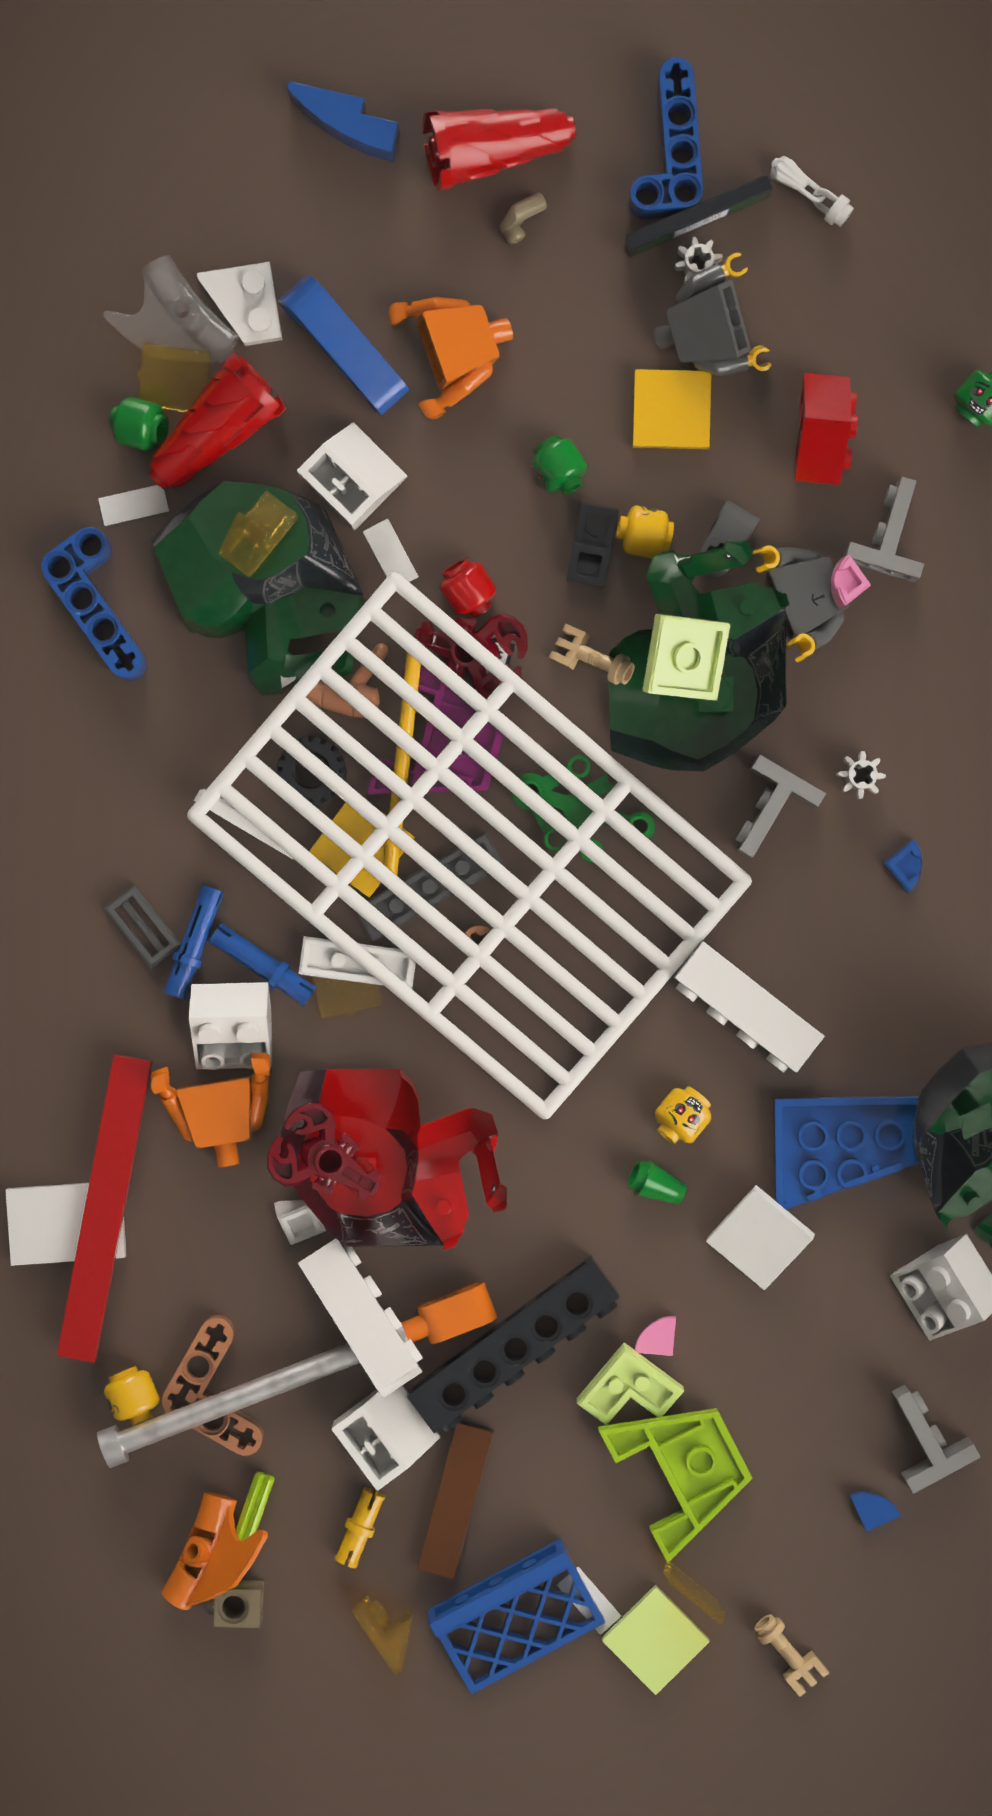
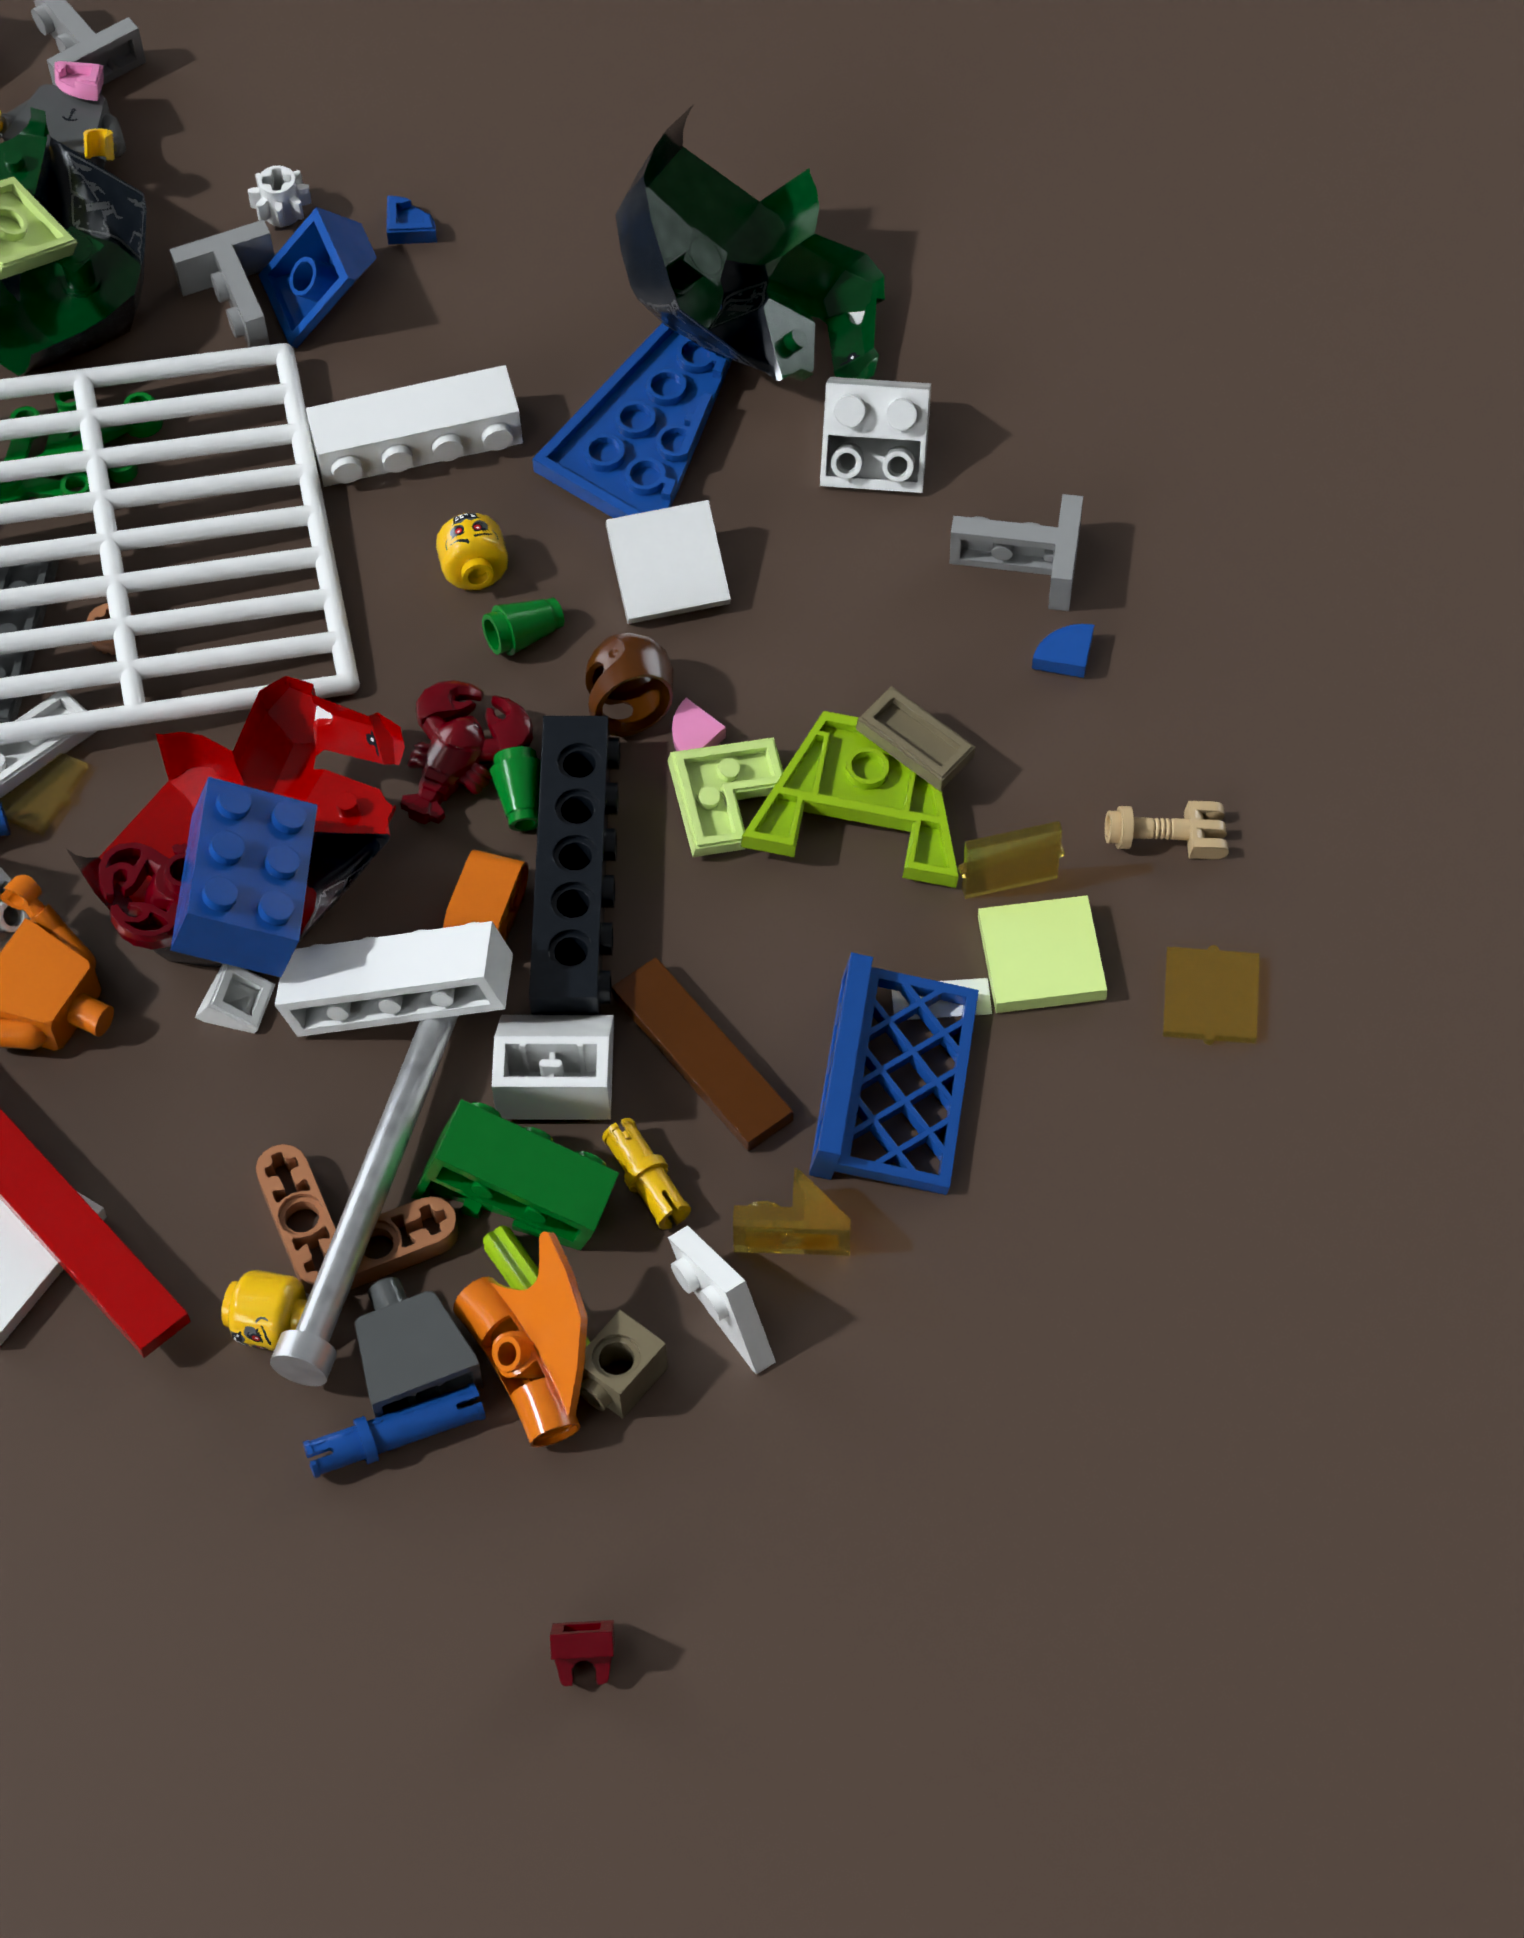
camera: 50 degrees left, 30 degrees down
(78, 1700) = (582, 1642): none -> dark red tile
(118, 1513) = (393, 1430): none -> blue pin
(164, 1490) = (411, 1349): none -> dark grey torso
(297, 1467) = (517, 1175): none -> green wedge
(307, 1638) = (723, 1295): none -> white wing
(343, 1206) = (244, 877): none -> blue brick
(545, 1270) = (518, 785): none -> green cone
(546, 1214) = (458, 745): none -> dark red animal
(664, 1285) = (632, 672): none -> reddish brown helmet
(699, 1747) = (1211, 995): none -> clear yellow piece
(738, 1478) = (915, 738): none -> dark tan tile
(814, 856) = (315, 271): none -> blue slope

